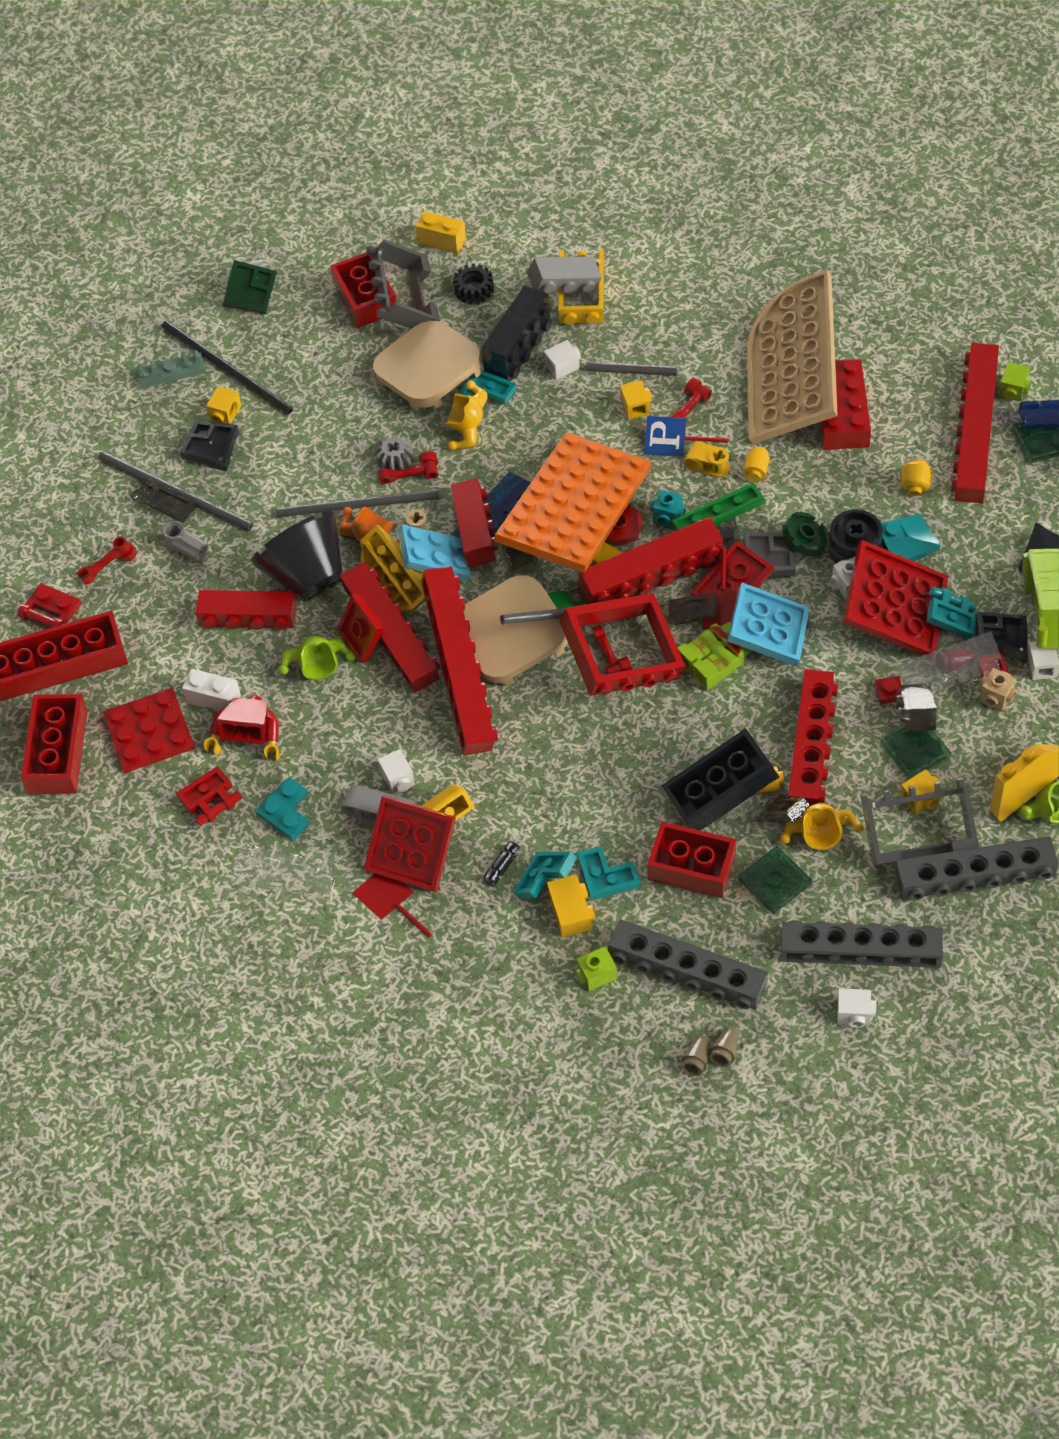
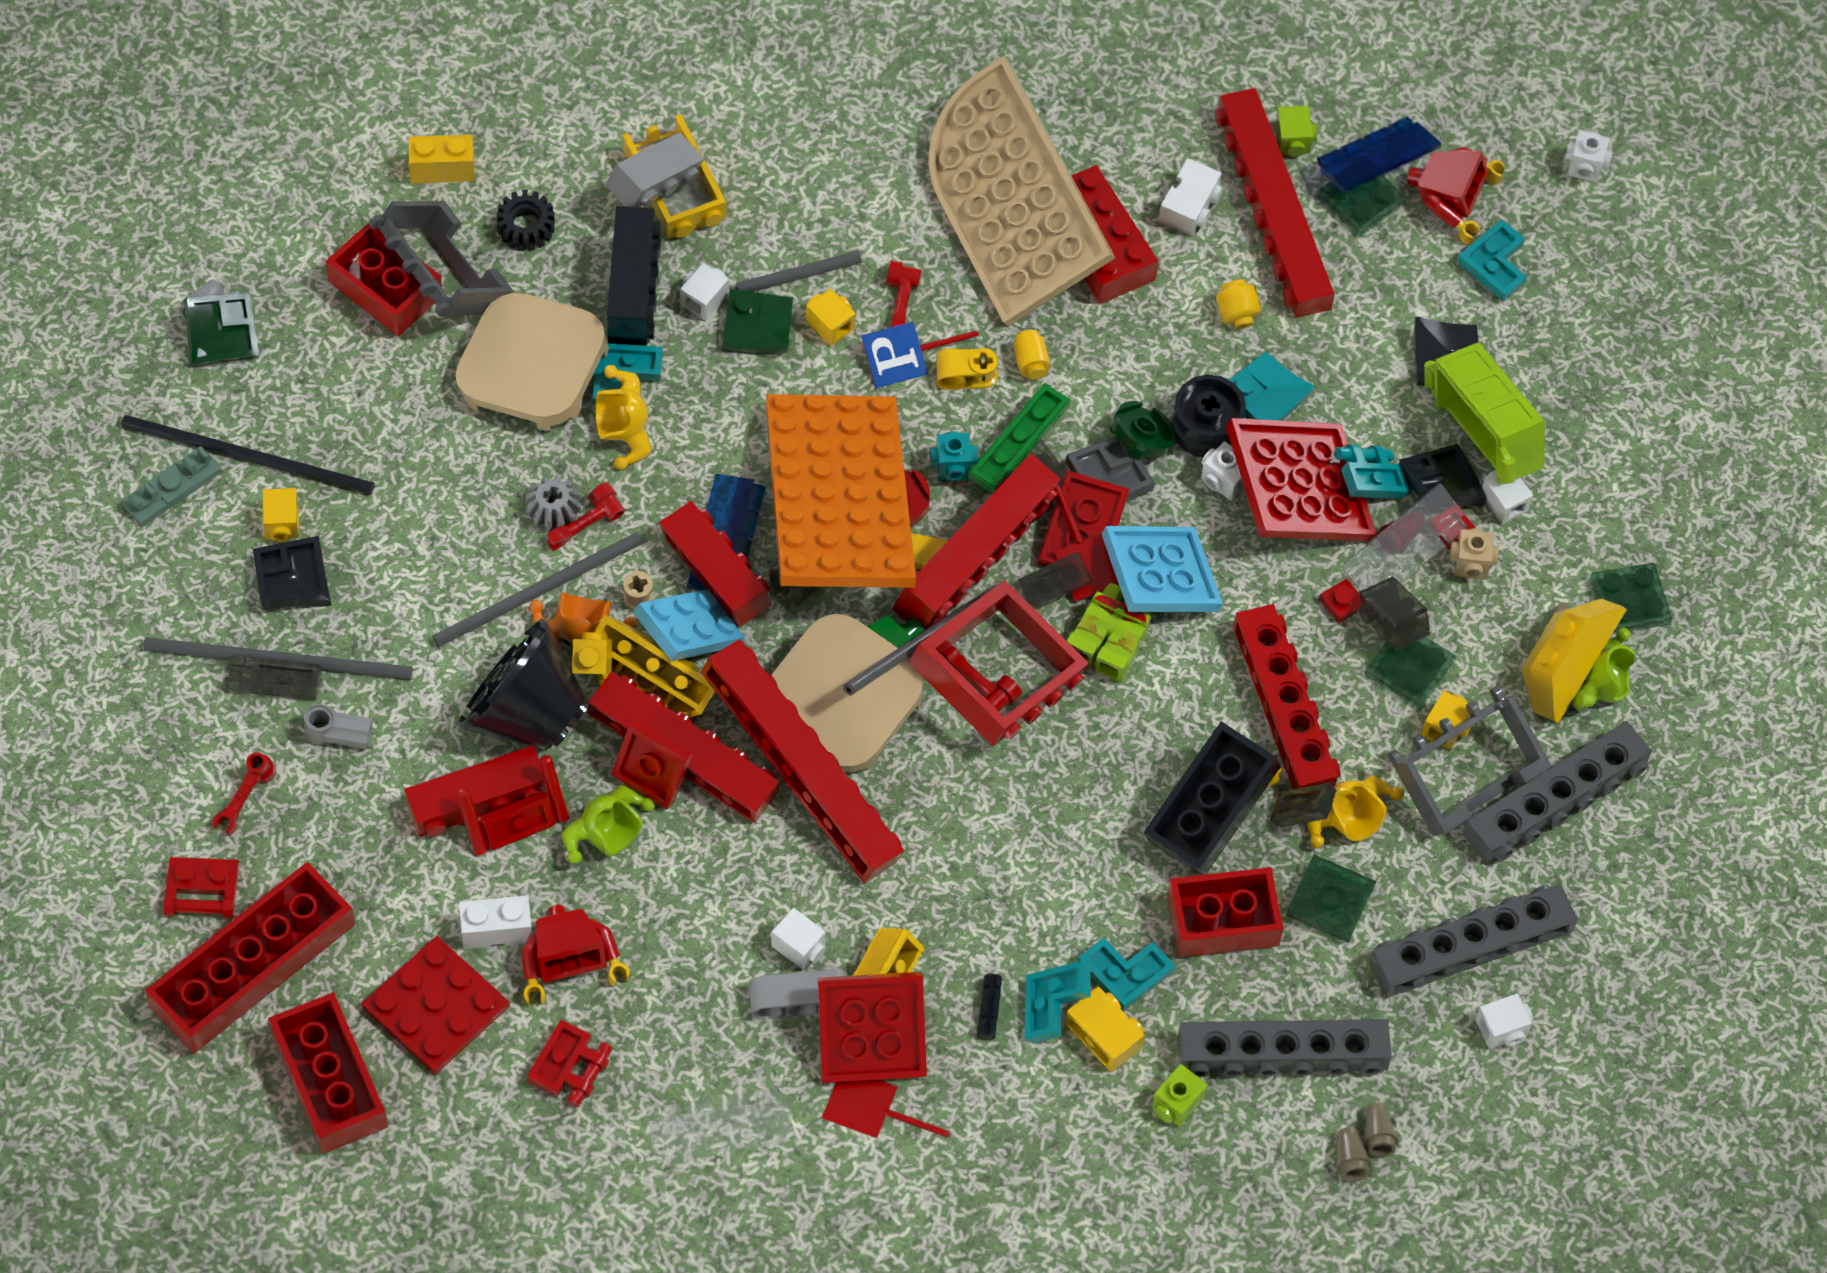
camera: 35 degrees left, 5 degrees up
(261, 635) = (518, 818): none -> red plate
(280, 812) = (670, 1049): teal plate -> none
(355, 546) = (592, 654): none -> yellow brick
(587, 389) = (757, 323): none -> dark green plate
(920, 402) = (1188, 204): none -> white brick

